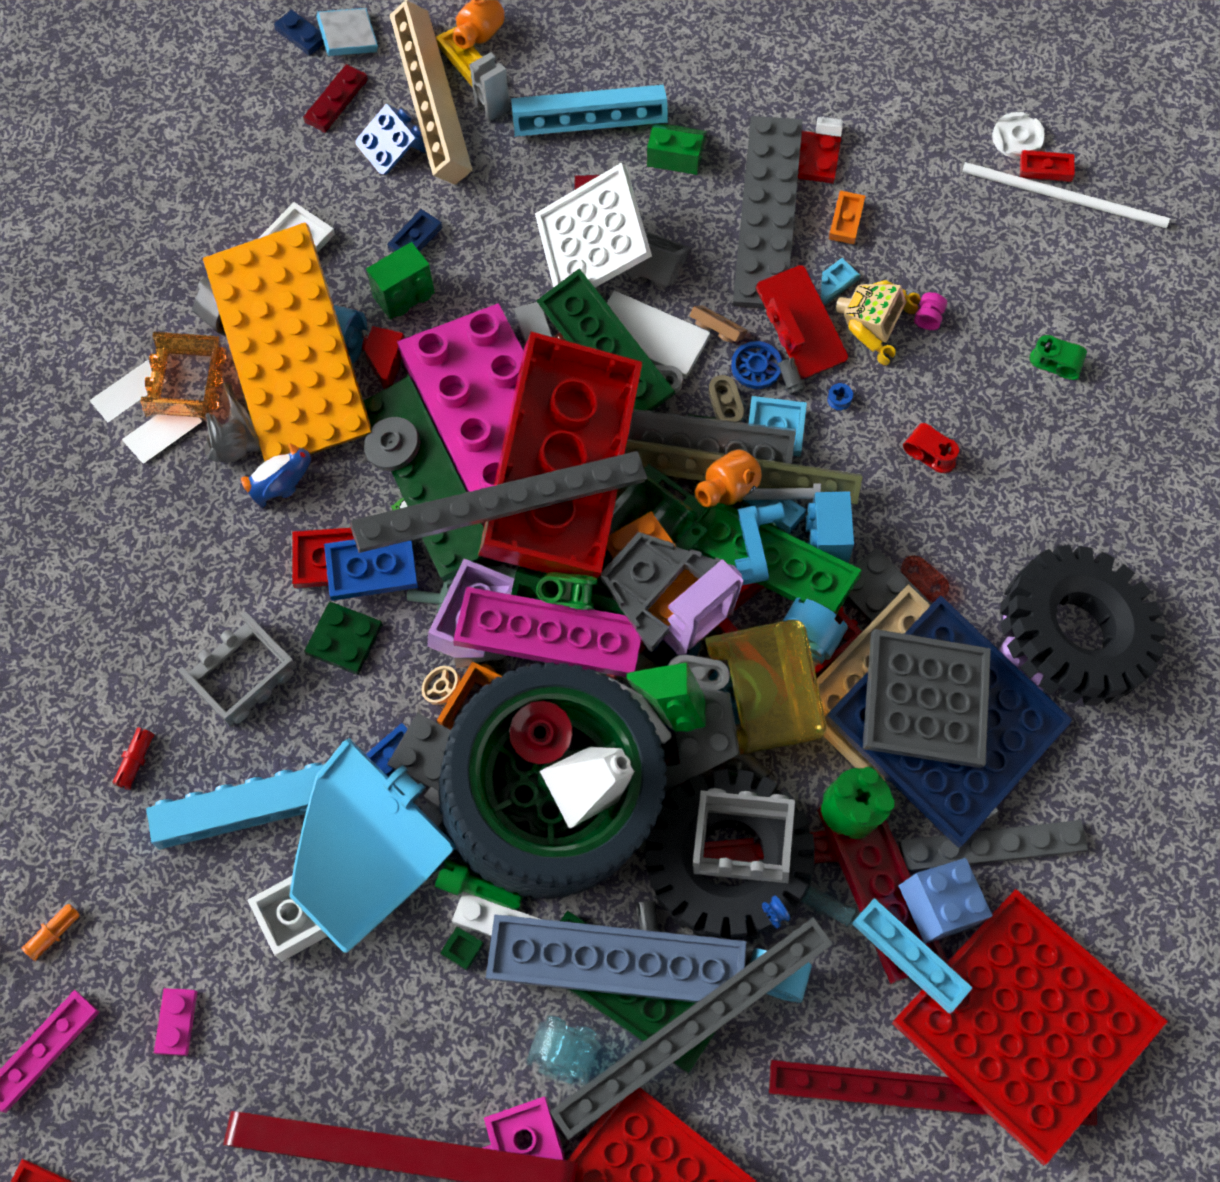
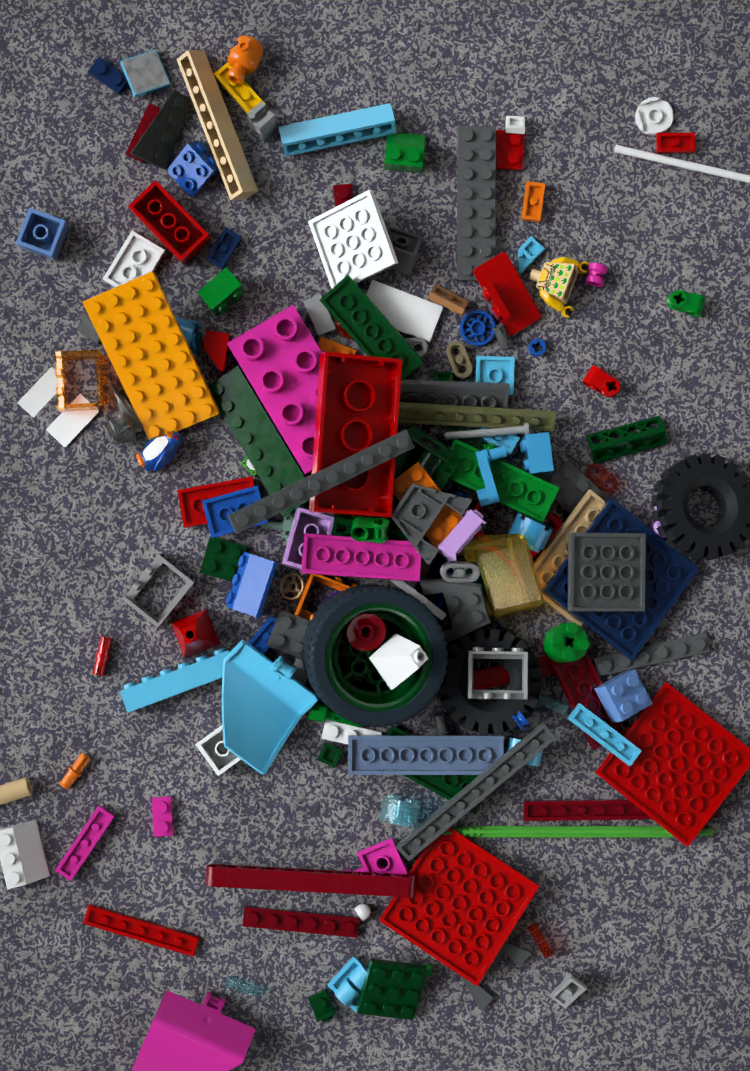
camera: 10 degrees left, 20 degrees up
(172, 194) = (42, 234): none -> medium blue brick
(281, 739) = (203, 630): none -> red slope
(346, 196) = (169, 222): none -> red brick
(354, 98) = (159, 139): none -> pearl dark grey wing
(376, 670) = (251, 584): none -> slope
(392, 443) = (243, 421): dark grey piece -> none
(672, 695) = (447, 596): green slope -> none
(729, 479) = (467, 431): orange piece -> none
(850, 1124) = (568, 832): none -> bright green axle
(966, 530) = (628, 442): none -> dark green fence

